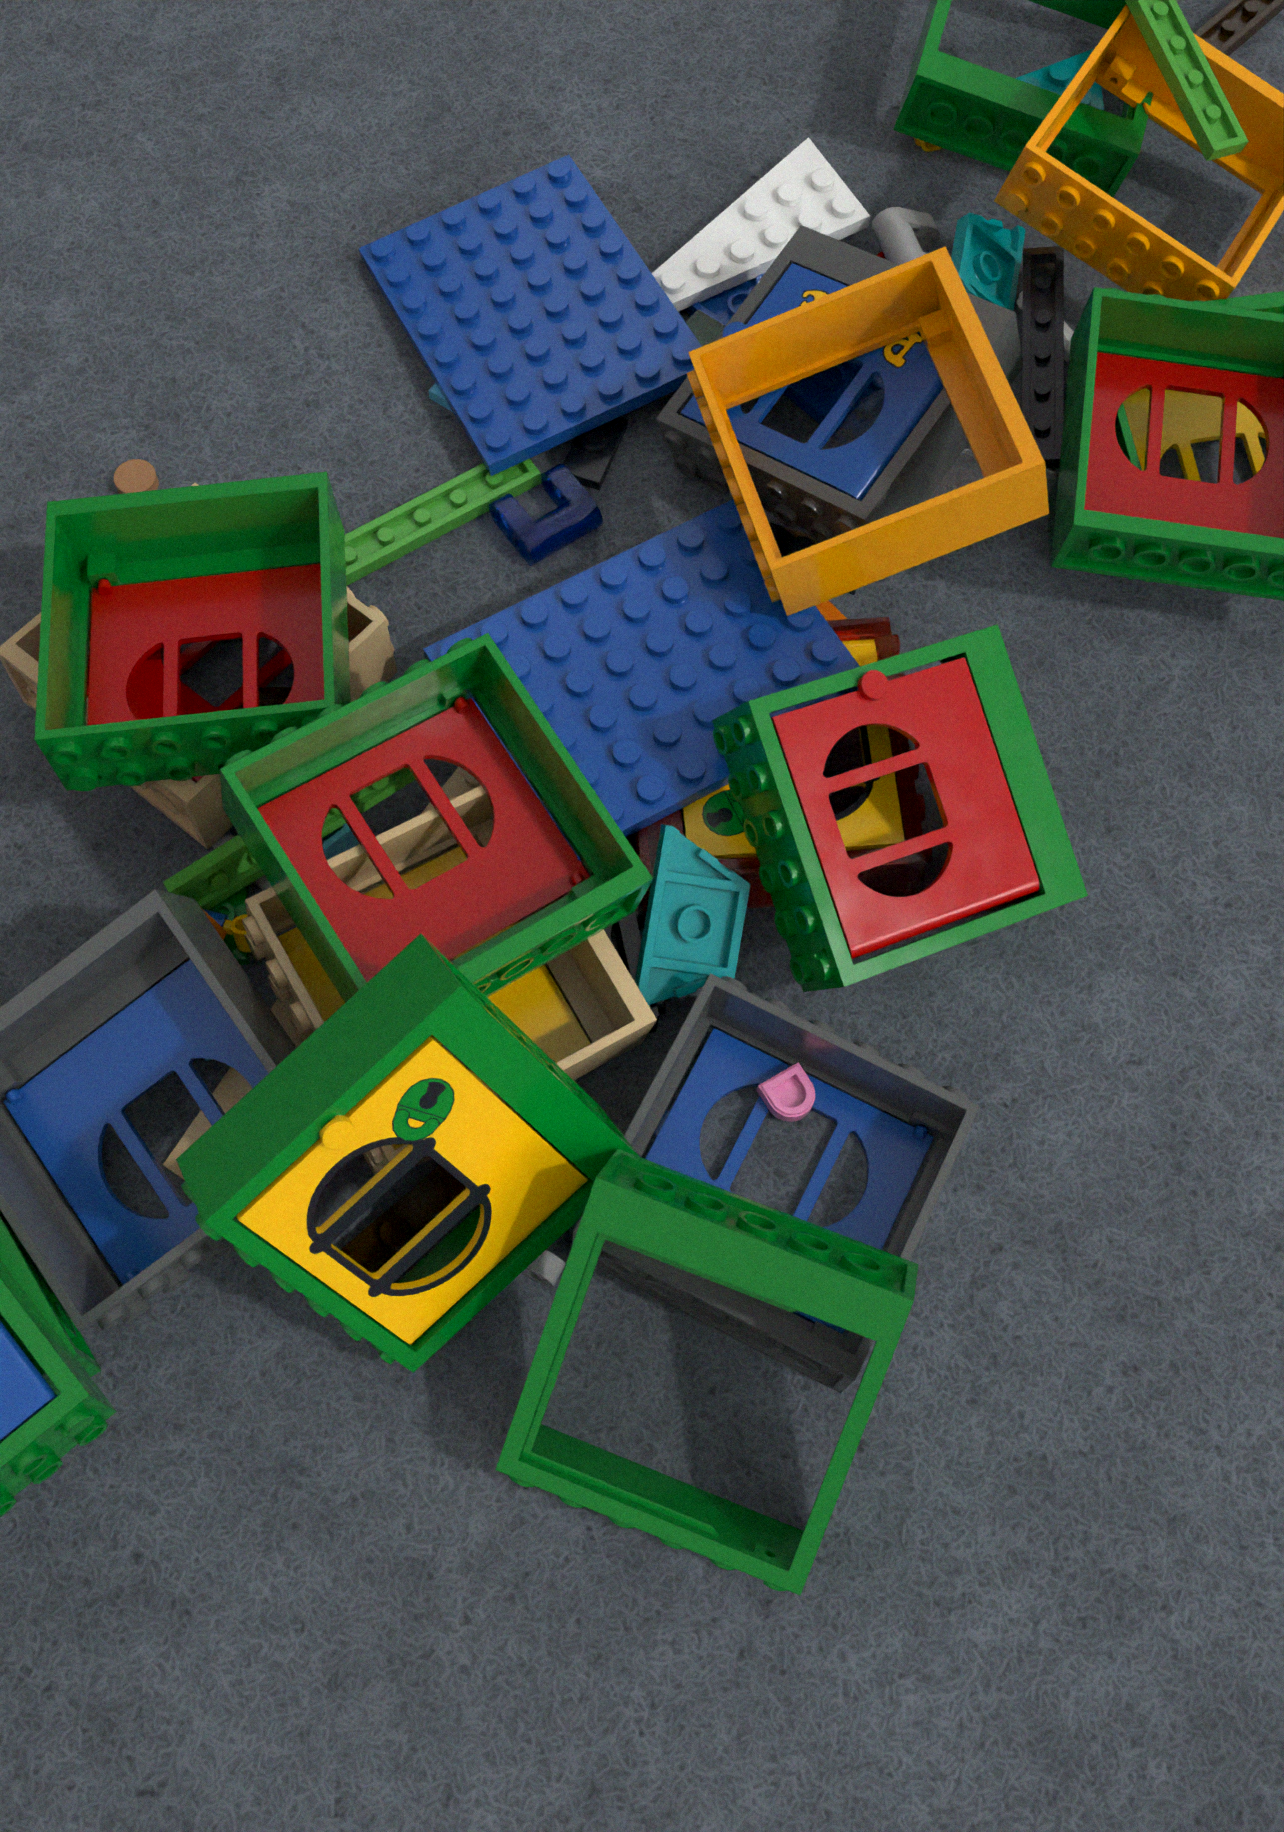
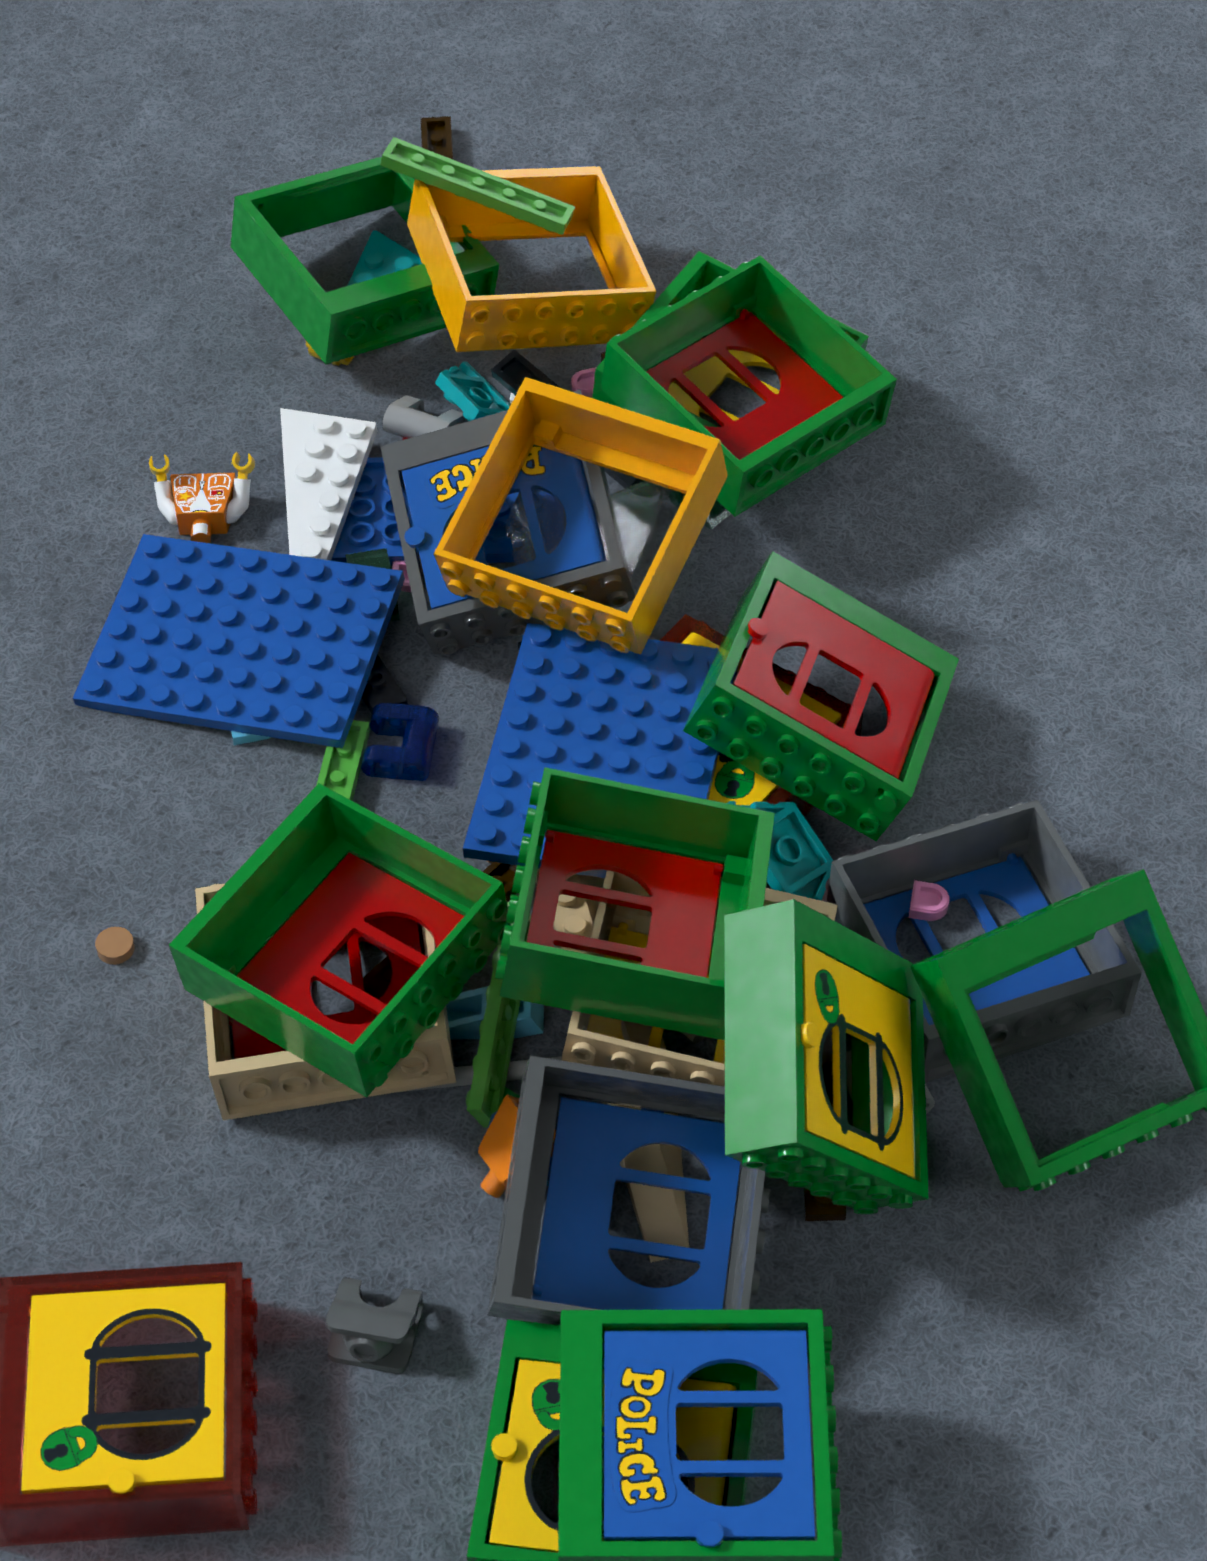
camera: 45 degrees left, 15 degrees down
(654, 167) = (204, 501): none -> torso

